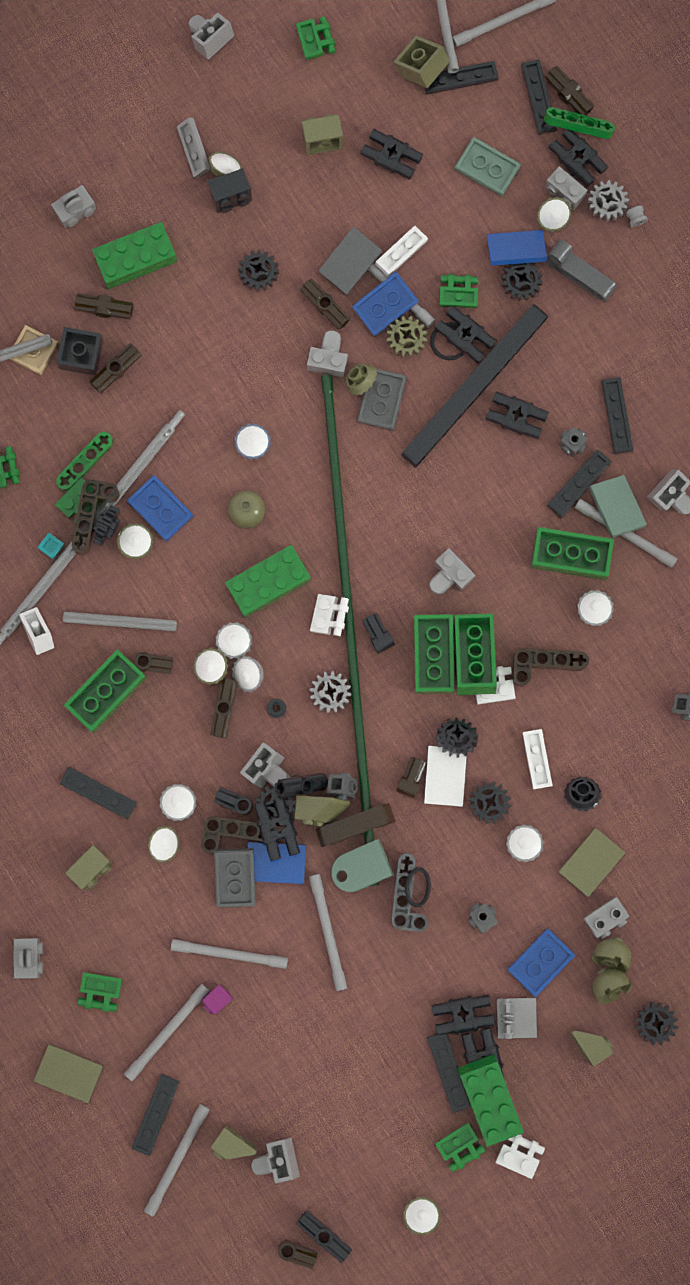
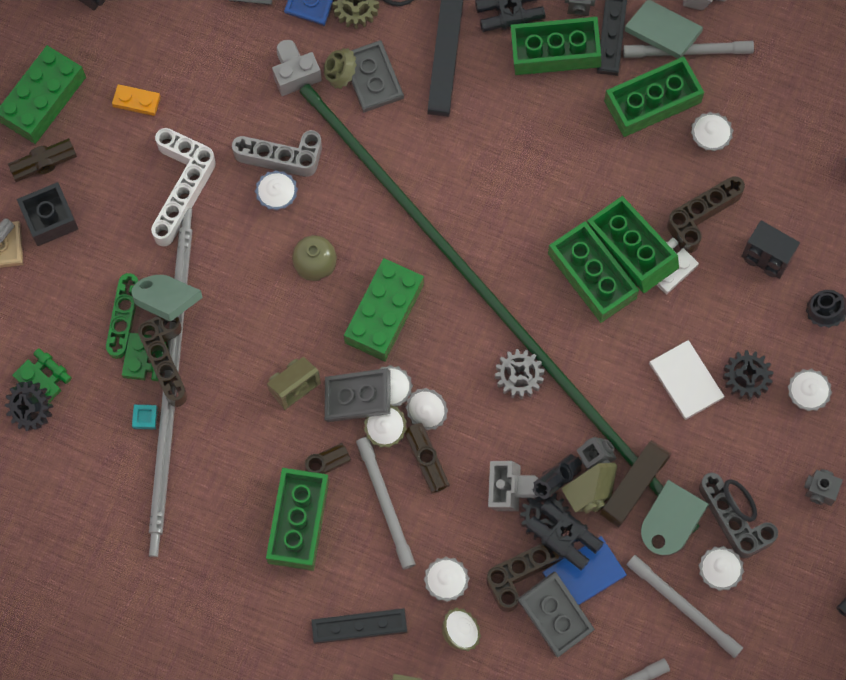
camera: 30 degrees left, 10 degrees down
(37, 631) = (188, 506): white slope -> none
(106, 525) = (187, 358): black gear -> none
(119, 621) = (263, 444): light grey axle -> none
(120, 471) = (164, 296): none -> sand green tile
(124, 359) = (91, 221): dark brown piece -> none
(135, 541) = (226, 356): white piece -> none
(160, 508) = (229, 312): blue tile -> none
(164, 759) = (402, 548): none -> light grey piece
(168, 591) = (293, 382): none -> olive slope
(191, 392) = (184, 184): none -> white beam
(200, 304) = (136, 100): none -> light orange plate
(206, 631) = (357, 395): none -> dark grey tile
(232, 800) = (497, 541): black piece -> none
(265, 274) = (176, 43): black gear -> none
(272, 703) = (477, 418): black plate -> none
(273, 412) = (277, 151): none -> light grey beam
(318, 295) = (244, 22): dark brown piece -> none
(324, 615) = (460, 305): white plate -> none
(370, 924) = (721, 568): none -> white piece
(379, 636) = (531, 292): black piece -> none
(410, 781) = (657, 408): dark brown piece -> none
(447, 737) = (672, 334): black gear -> none
(451, 573) = (553, 187): light grey brick -> none
(528, 467) = (556, 45): none -> green brick
(537, 759) = (761, 305): white plate -> none
(570, 724) = (770, 250): none -> black brick

